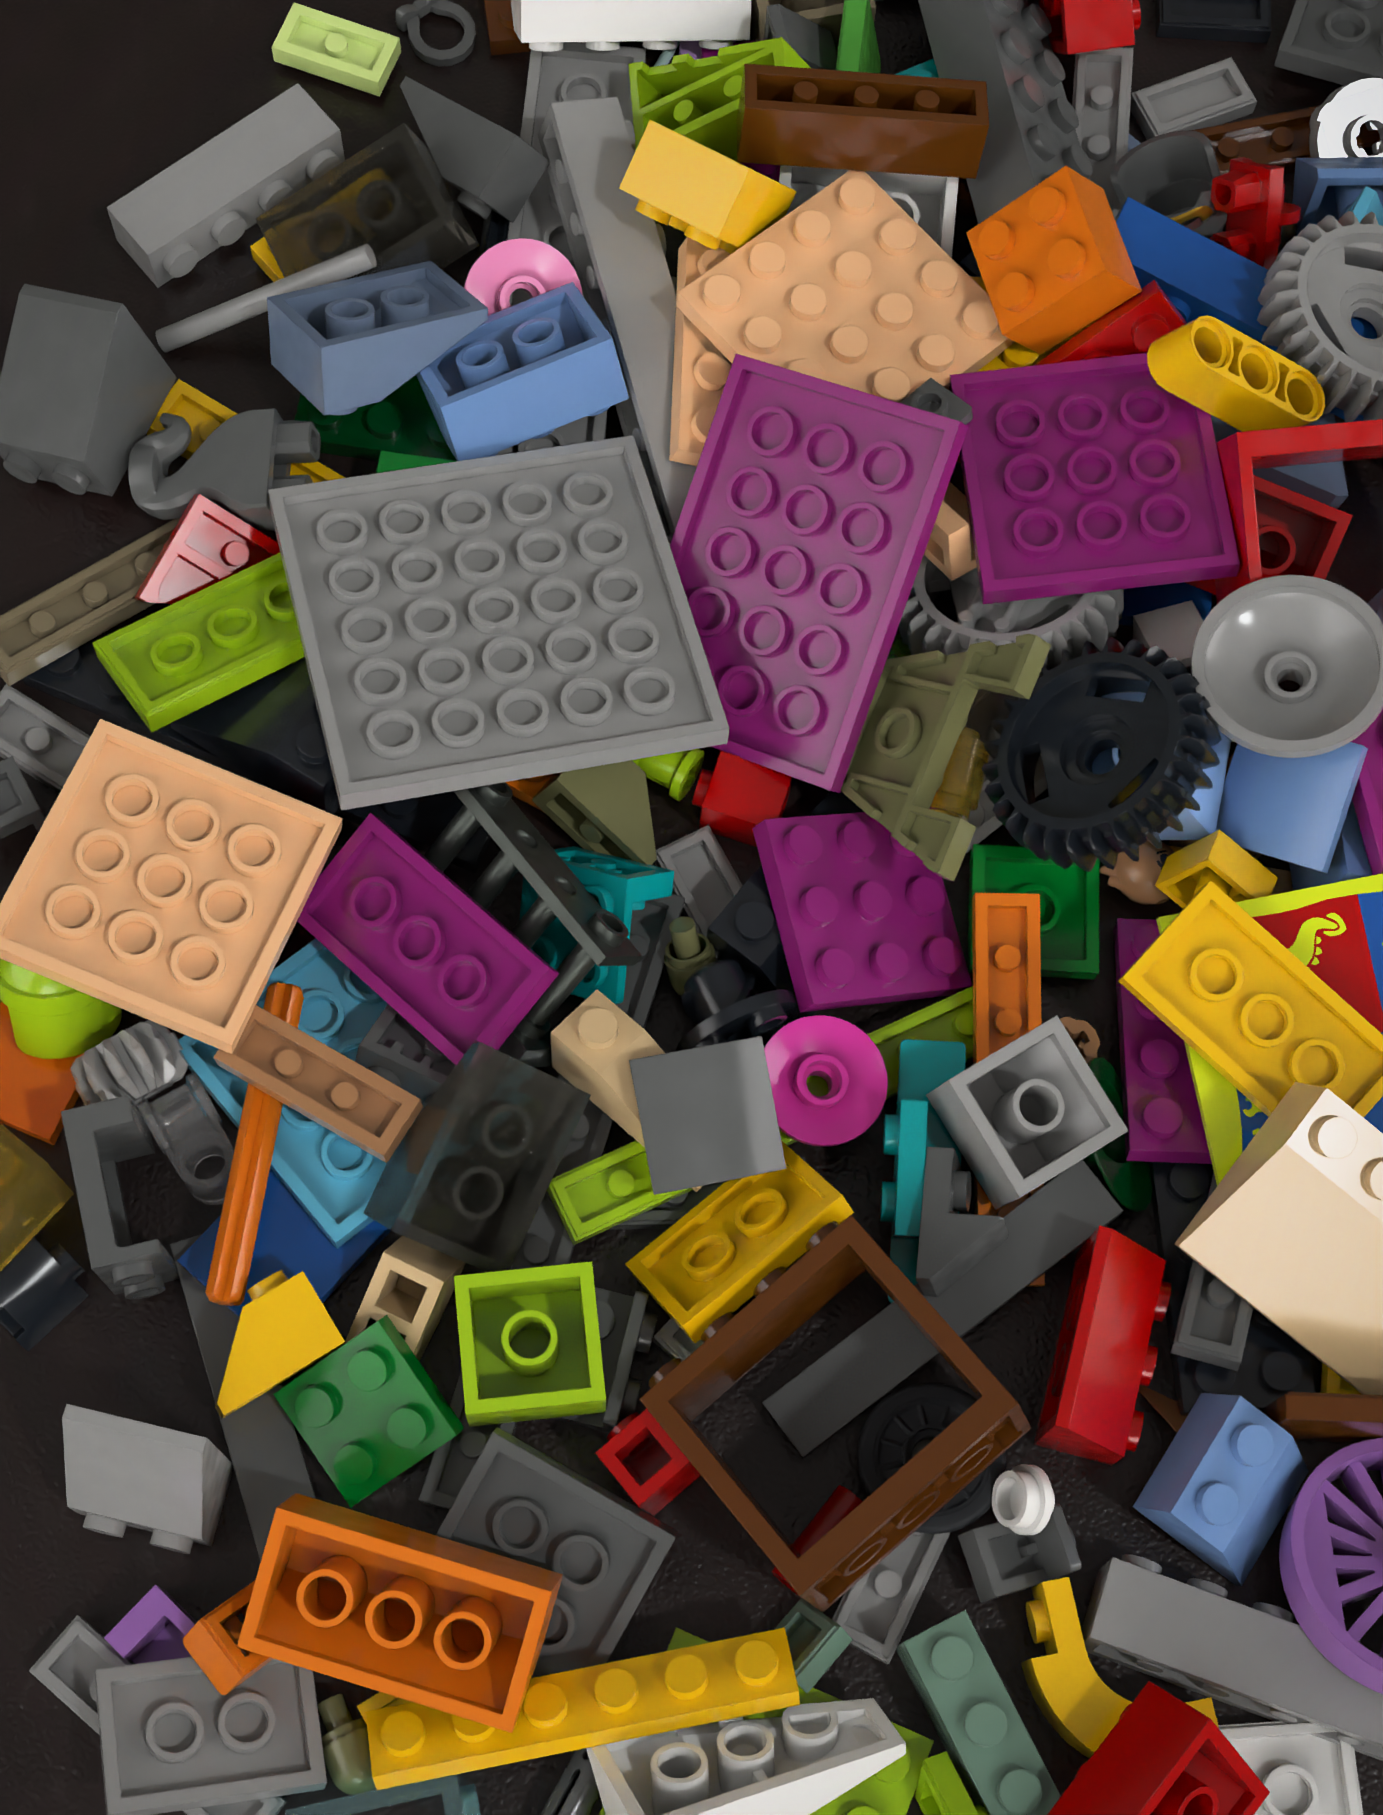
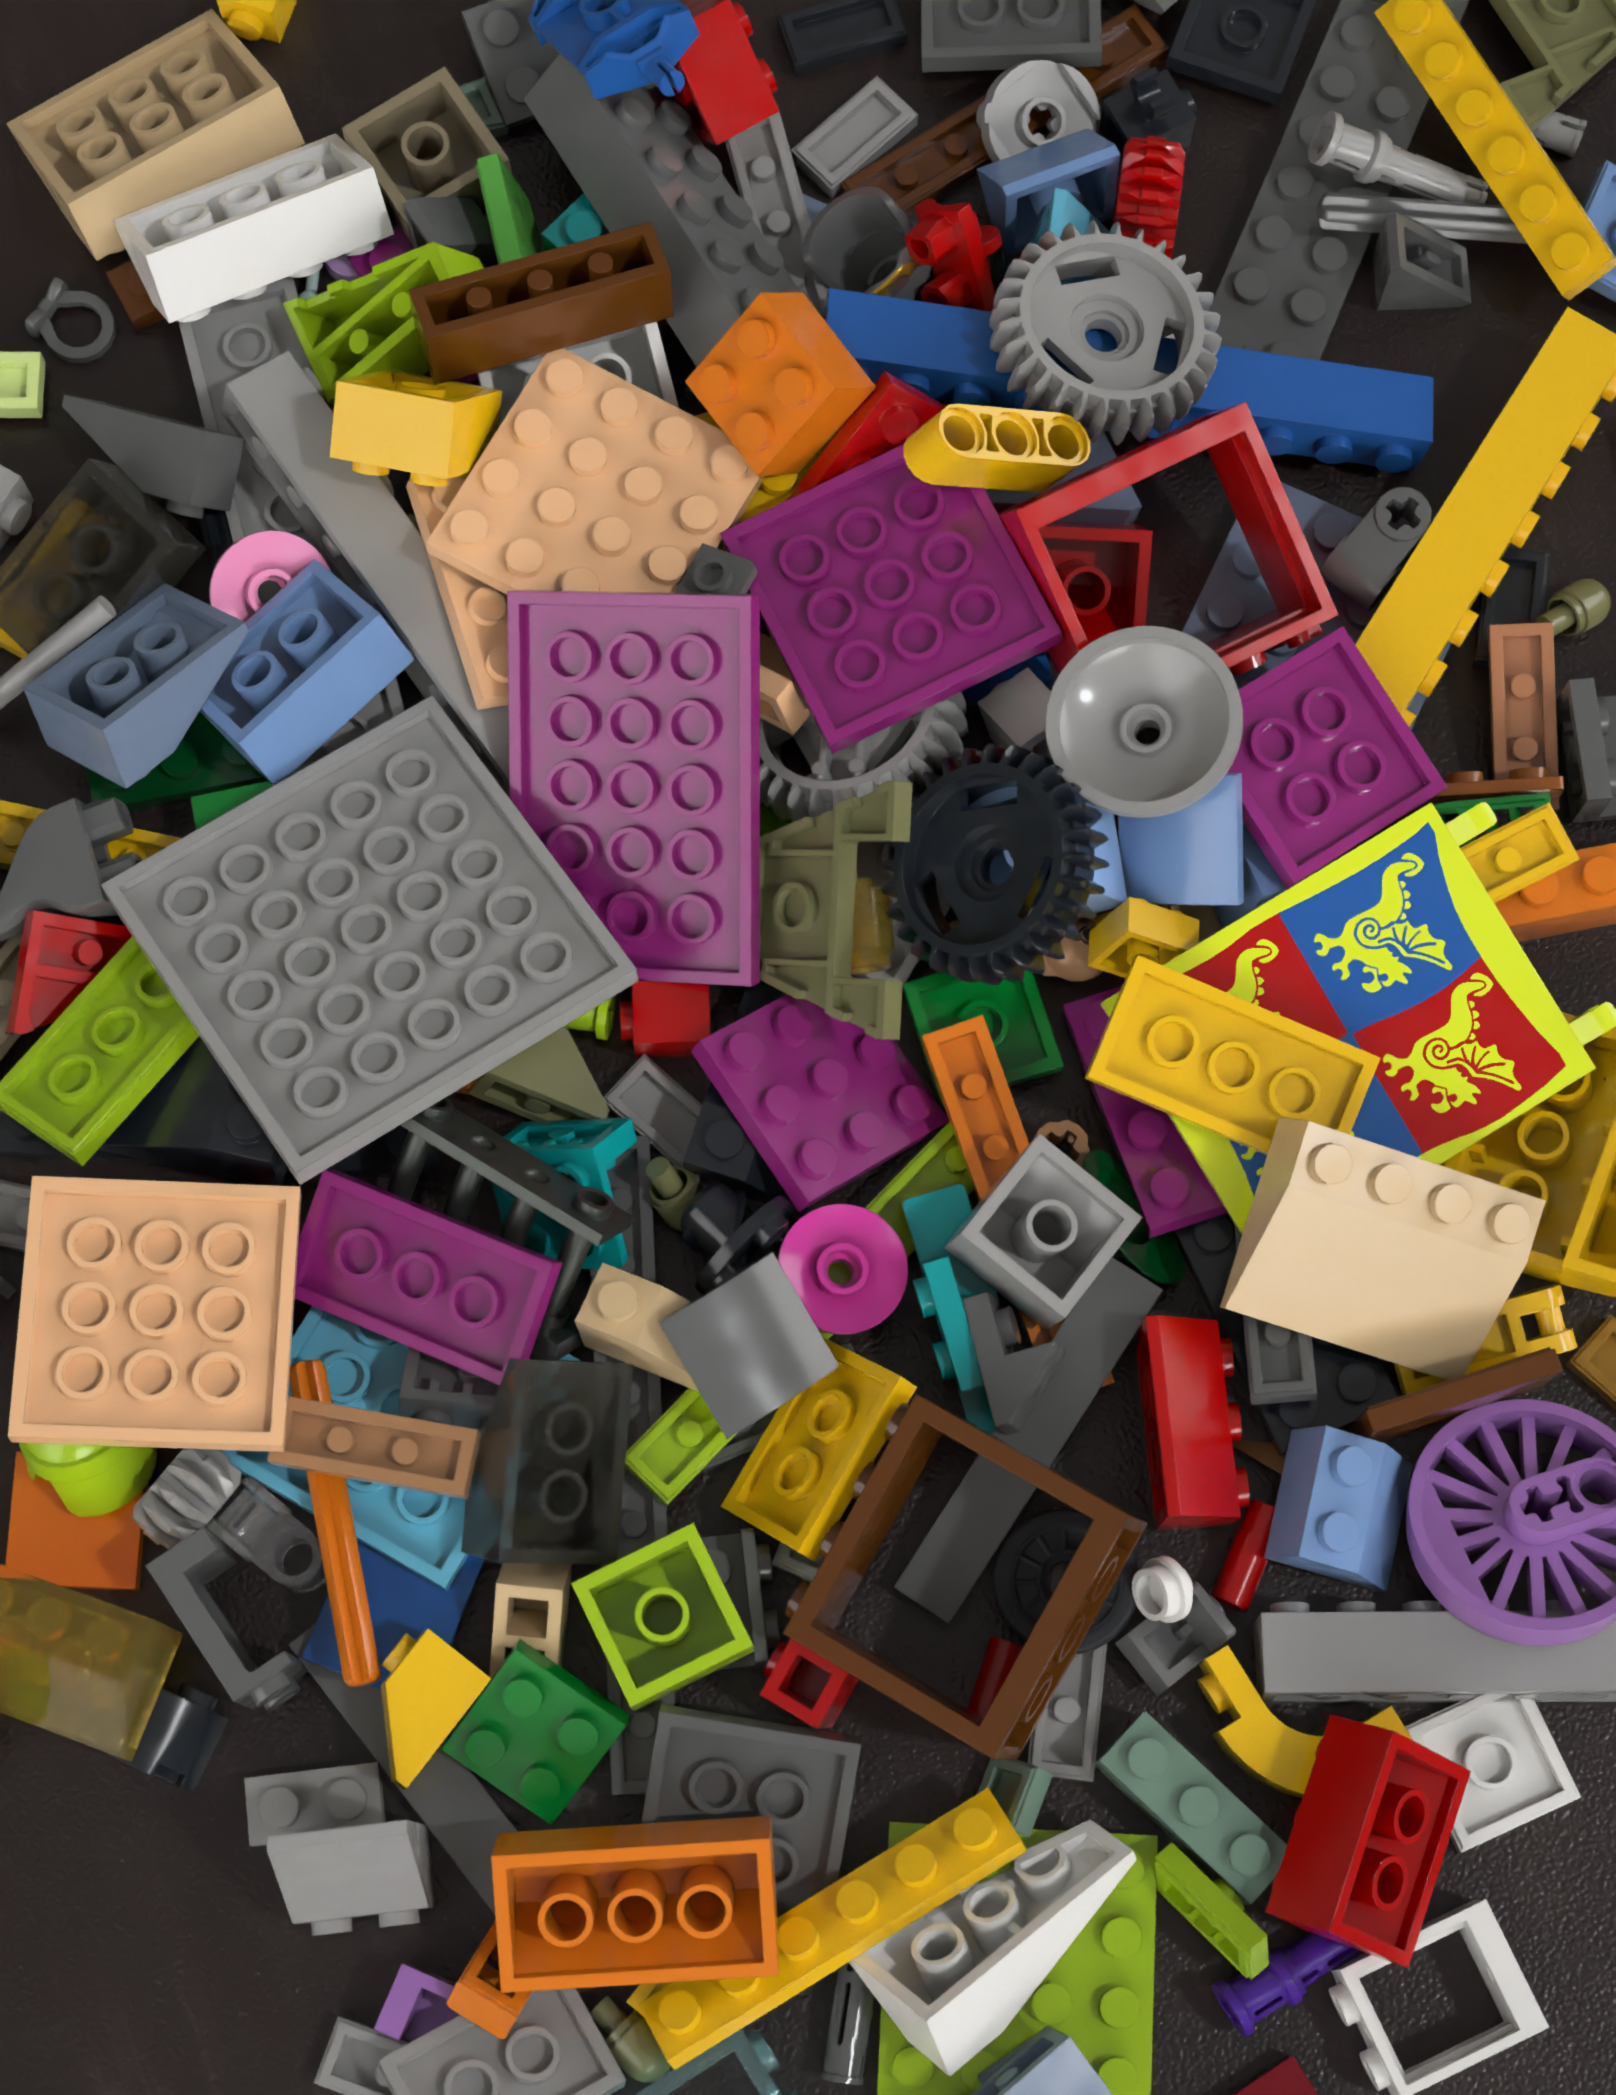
camera: 15 degrees left, 5 degrees up
(138, 1394) = (313, 1800): none -> light grey plate
(1113, 1502) = (1245, 1558): none -> red axle

